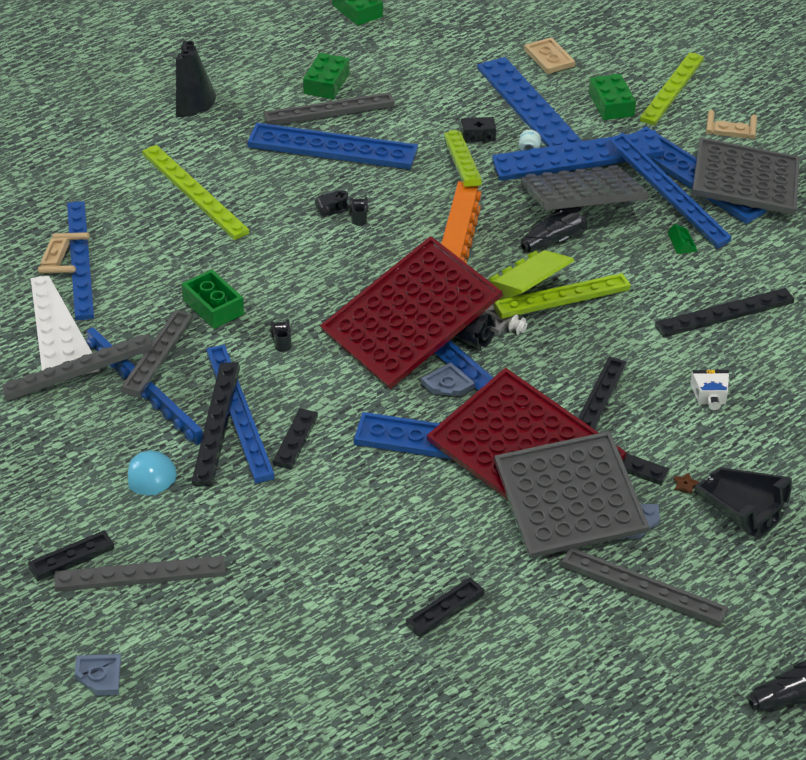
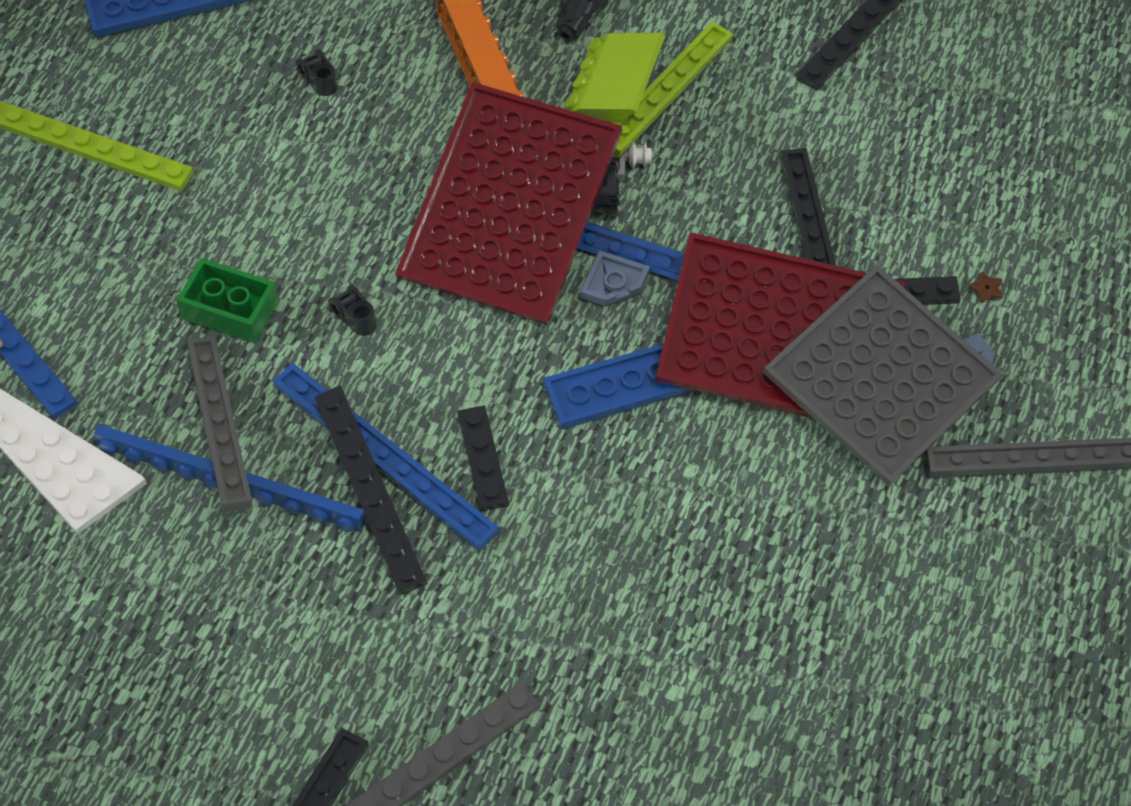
camera: 30 degrees left, 15 degrees up
(77, 367) = (123, 498): dark grey plate -> none
(150, 473) = (336, 607): medium azure cylinder -> none
(332, 204) = (276, 79): black piece -> none
(444, 607) = (840, 609): black plate -> none
(710, 387) = (925, 138): white torso -> none
(747, 497) = (1071, 275): black cone -> none

